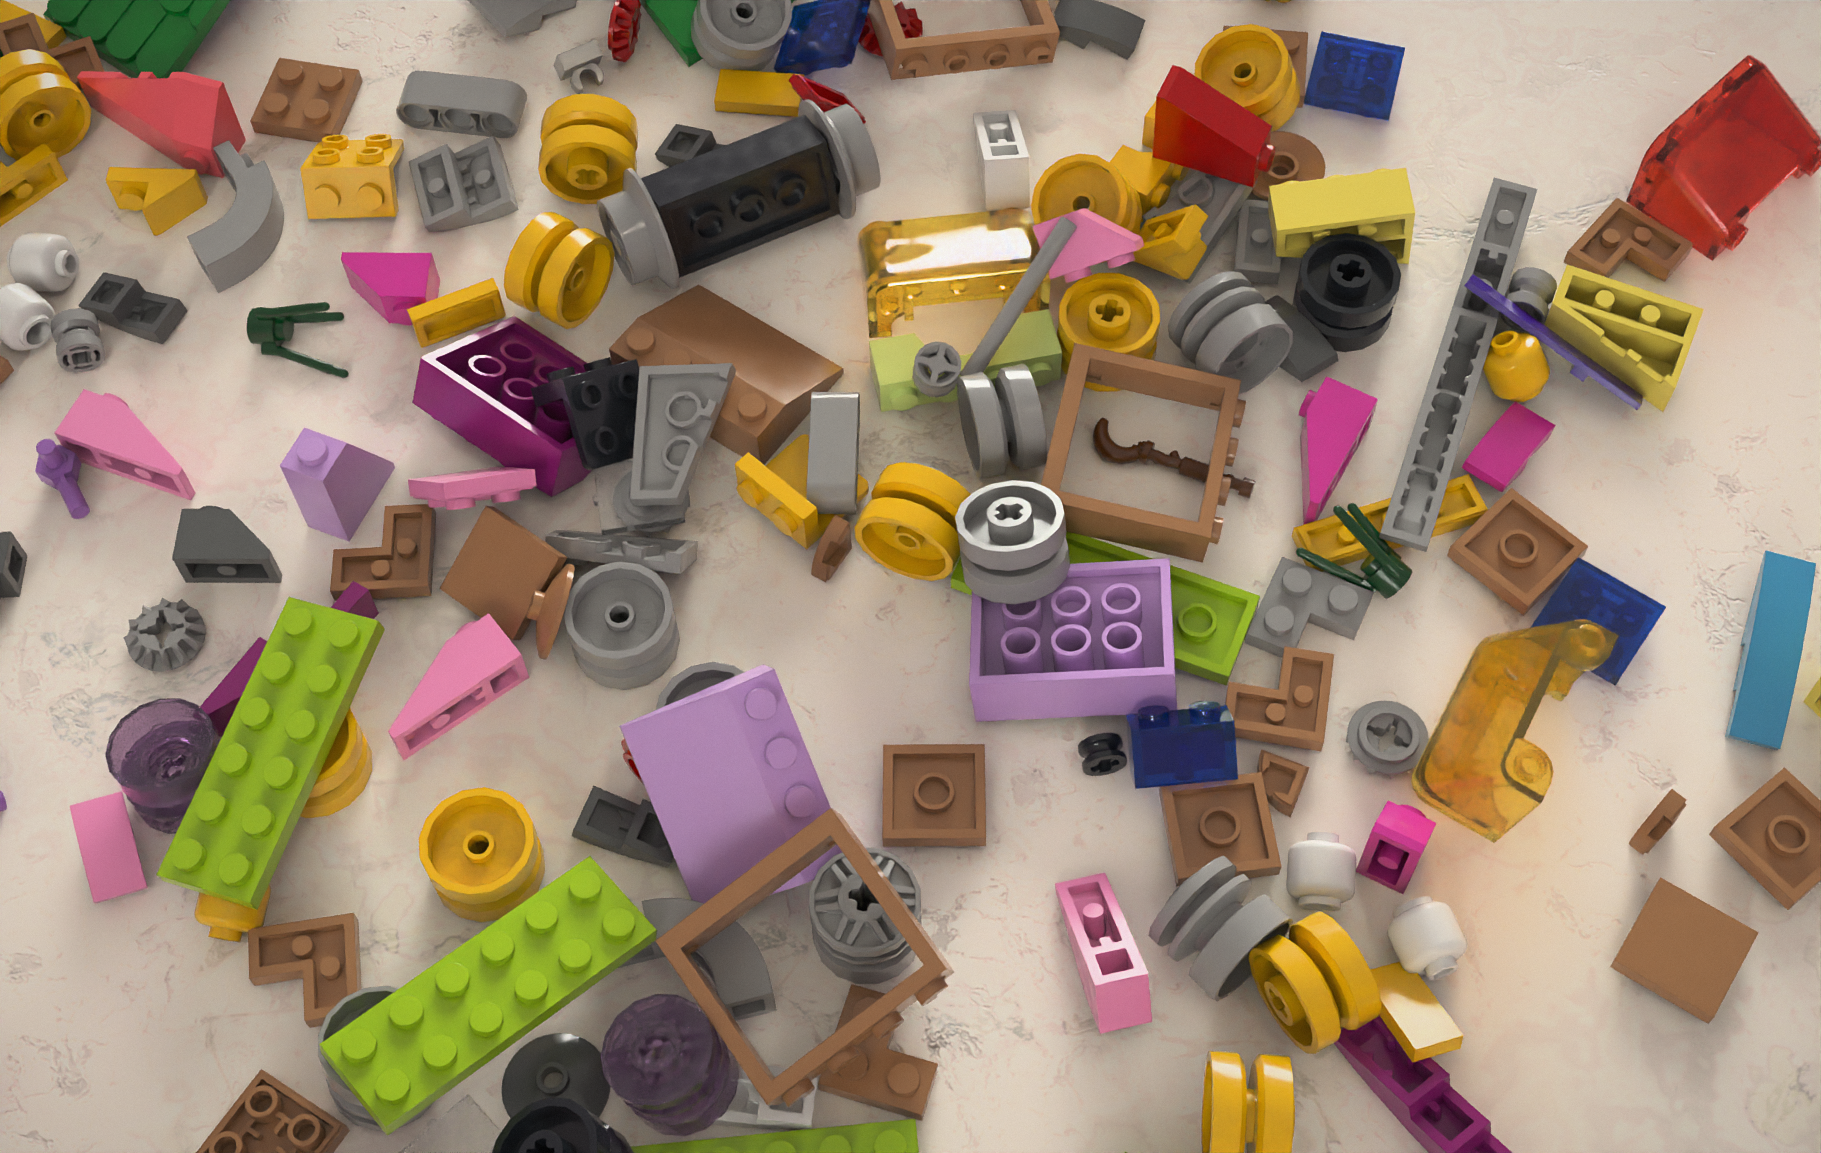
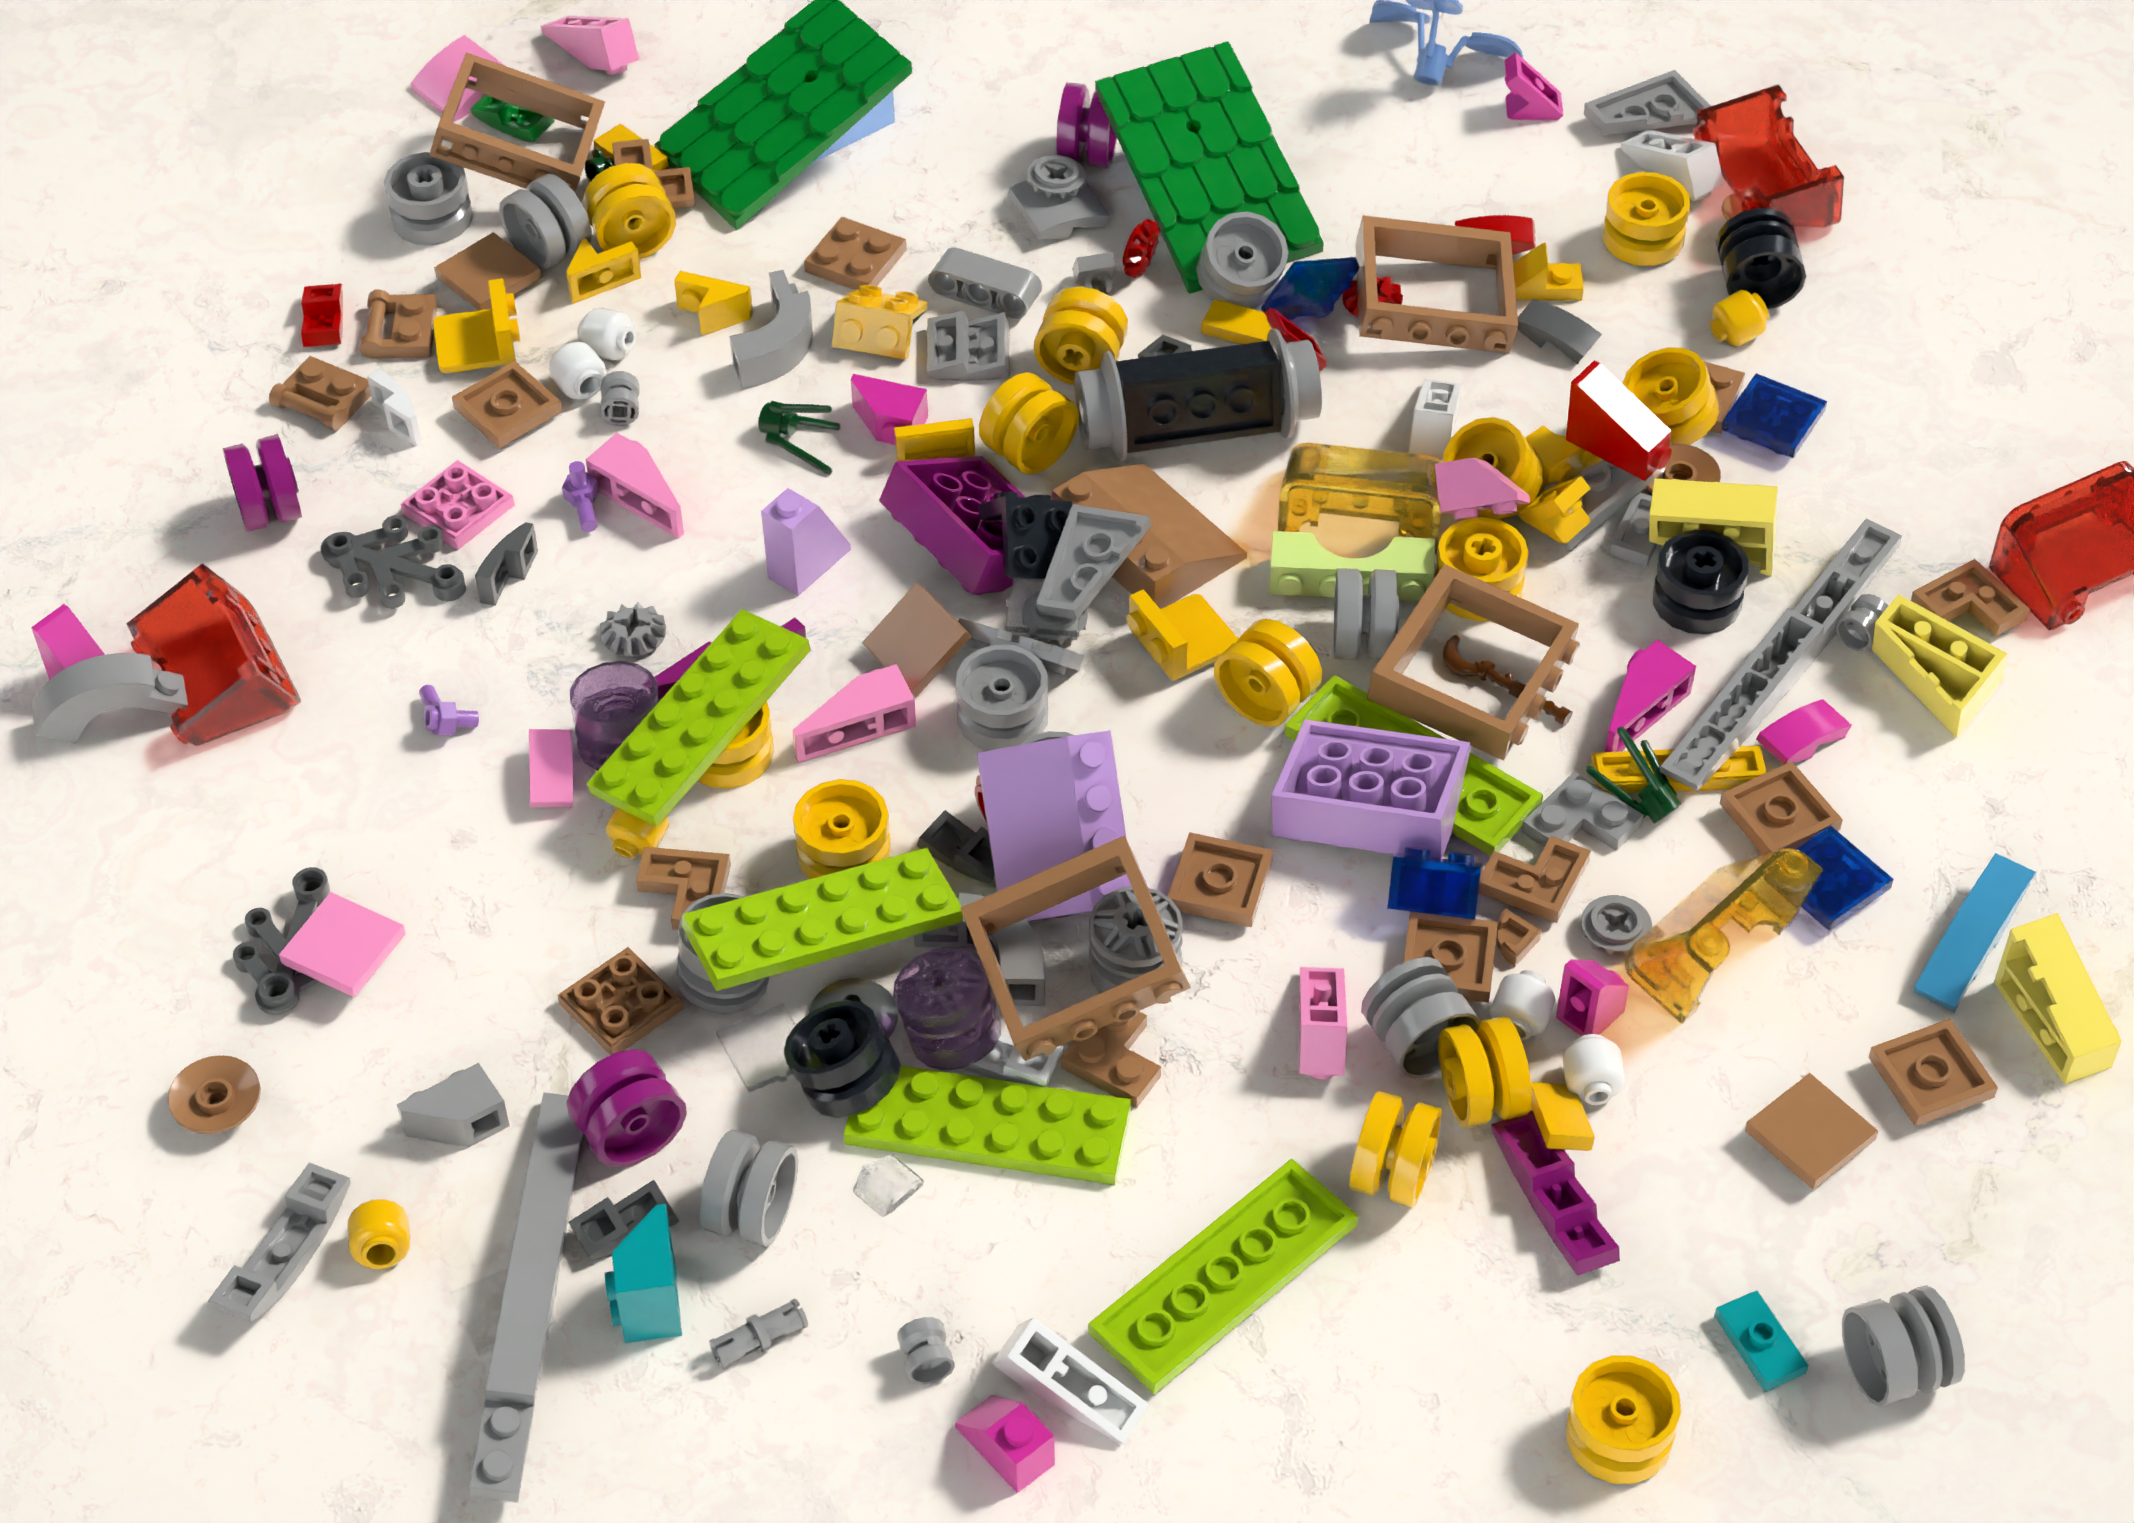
camera: 15 degrees right, 10 degrees down
(130, 308) = (665, 383): dark grey slope -> none
(173, 114) = (739, 240): coral wedge -> none
(220, 548) = (695, 576): dark grey slope -> none
(397, 568) = (837, 617): medium nougat plate -> none
(464, 488) = (911, 568): bright pink tile -> none
(549, 608) = (944, 671): medium nougat dish -> none
(832, 549) = (1193, 683): medium nougat tile -> none
(833, 452) = (1216, 608): light grey beam -> none
(939, 359) = (1321, 551): light grey wheel -> none
(1013, 542) = (1341, 699): light grey wheel -> none
(1020, 297) = (1409, 516): light grey bar -> none
(1102, 754) = (1369, 881): black bush -> none
(1230, 330) = (1587, 585): light grey wheel -> none
(1310, 349) = (1642, 609): dark grey slope -> none
(1516, 366) = (1829, 668): yellow head -> none
(1582, 364) = (1889, 680): dark purple piece -> none
(1658, 822) = (1825, 1035): medium nougat tile -> none

